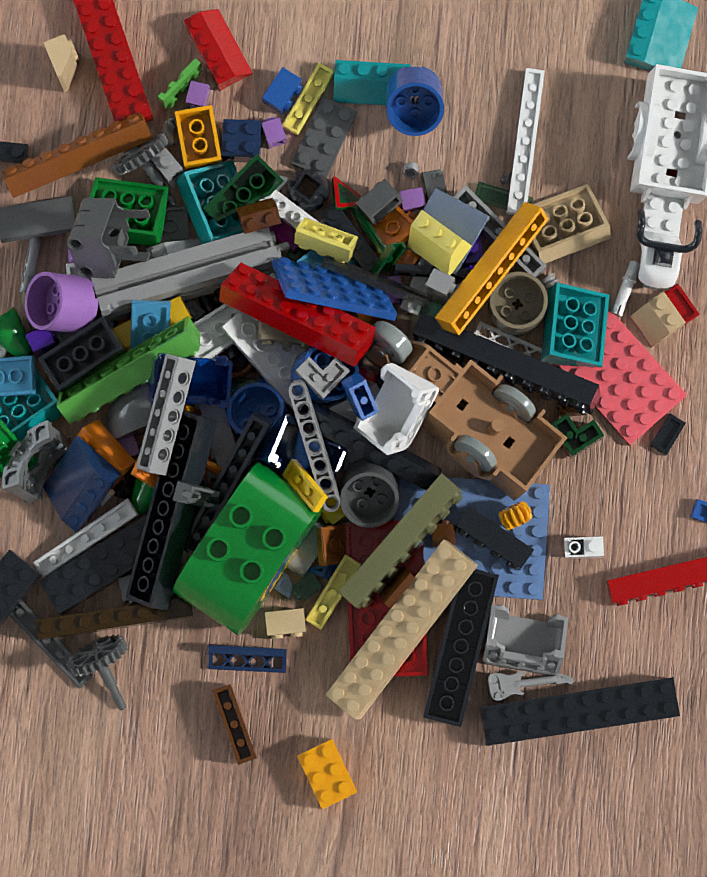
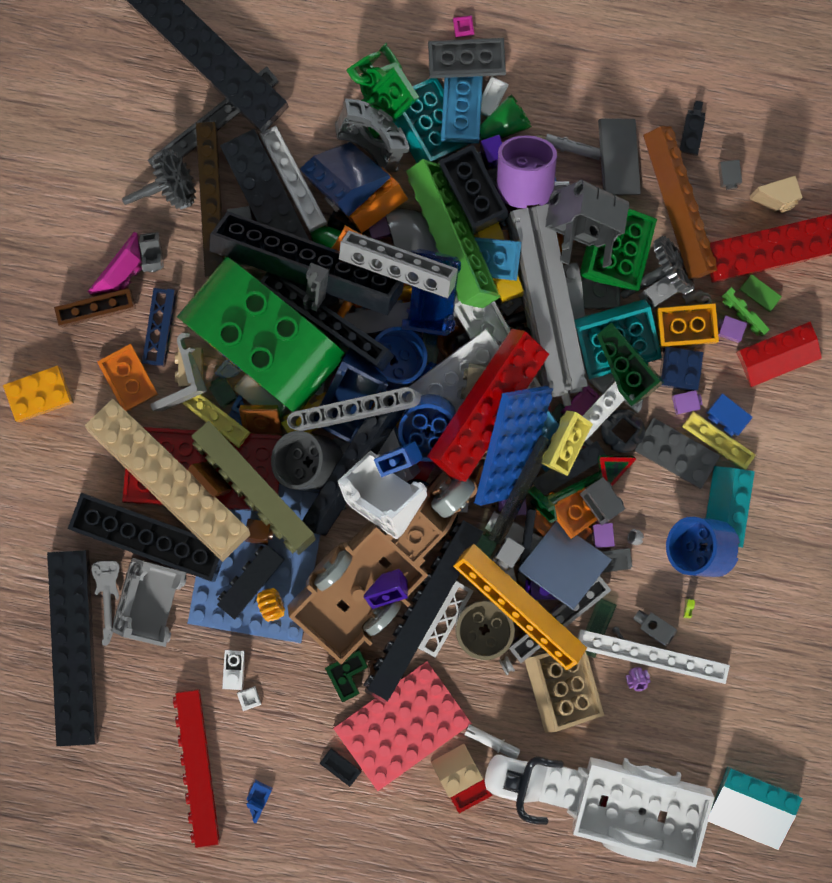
camera: 90 degrees right, 5 degrees up
(45, 111) = (730, 174): none -> dark grey brick
(159, 72) = (760, 293): none -> bright green tile
(172, 673) = (151, 252): none -> dark grey brick
(192, 703) = (120, 269): none -> dark pink wedge
(258, 215) = (598, 377): reddish brown brick -> none
(296, 615) = (193, 376): none -> light grey hinge
(302, 685) = (127, 378): none -> orange plate
(305, 485) = (314, 396): yellow plate -> none
(321, 380) = (417, 423): light grey plate -> none
(436, 243) = (552, 554): light yellow slope -> none
(472, 112) = (689, 605): none -> lime tile
(488, 397) = (387, 589): none -> dark purple slope
(500, 132) = (663, 633): none -> dark grey torso
(549, 153) = (638, 679): none -> medium lavender gear
(575, 326) = (456, 685): teal slope -> none
(610, 531) = (249, 698): none -> white tile

